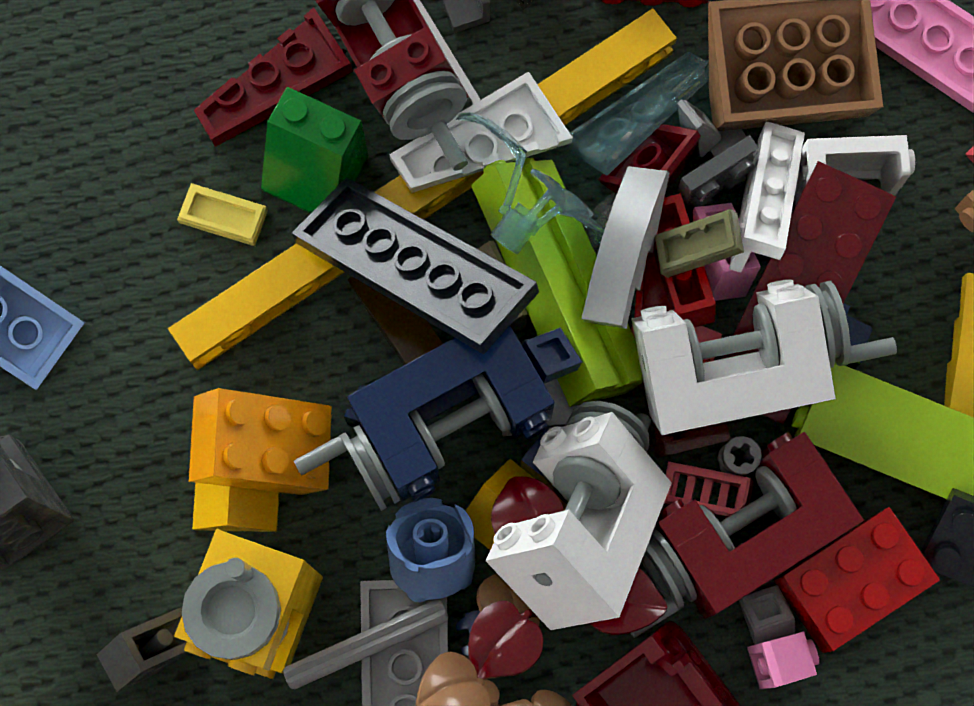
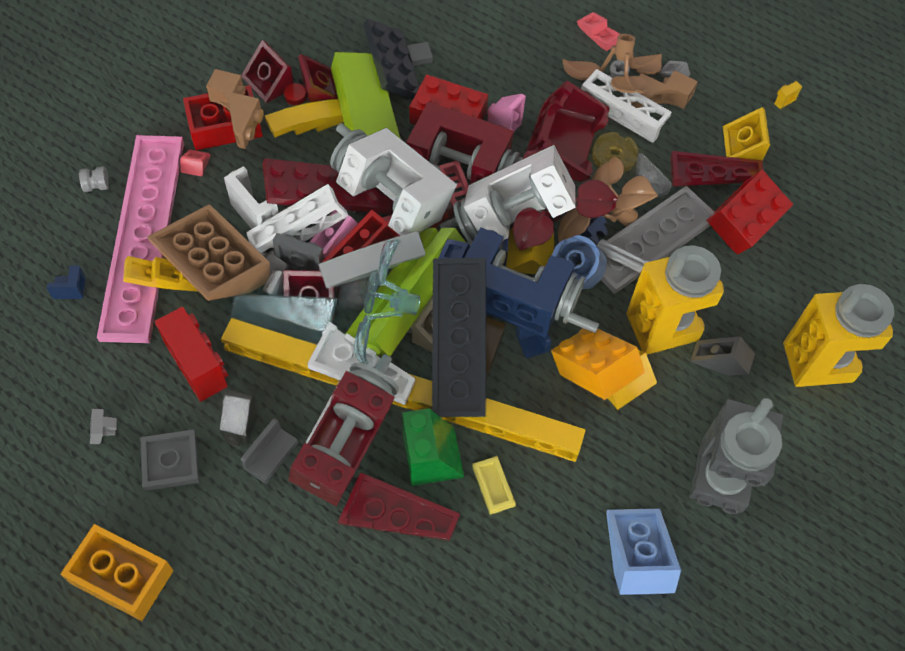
camera: 130 degrees left, 15 degrees down
(699, 243) = (348, 226): olive plate -> none

